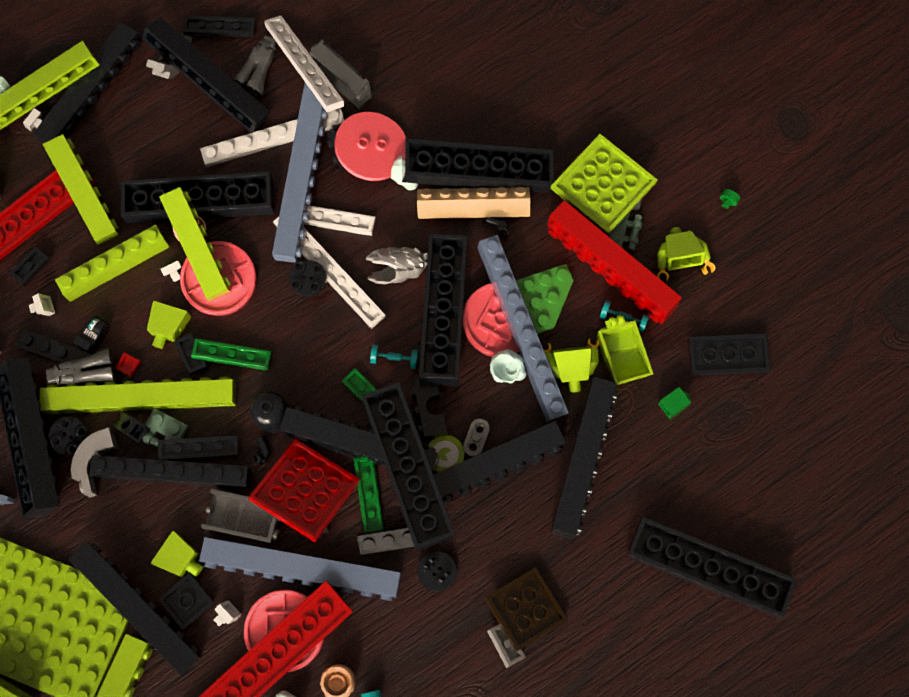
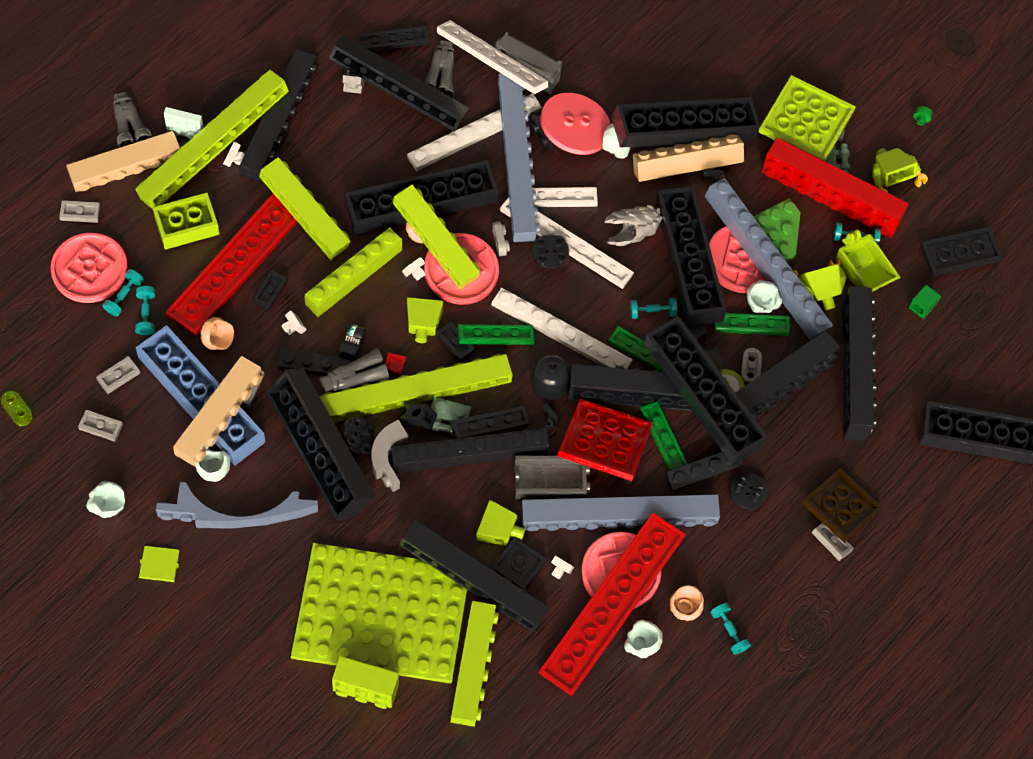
camera: 25 degrees left, 10 degrees down
(263, 259) = (501, 245): none -> light grey plate
(299, 364) = (559, 330): none -> white plate
(492, 391) = (754, 324): none -> green tile

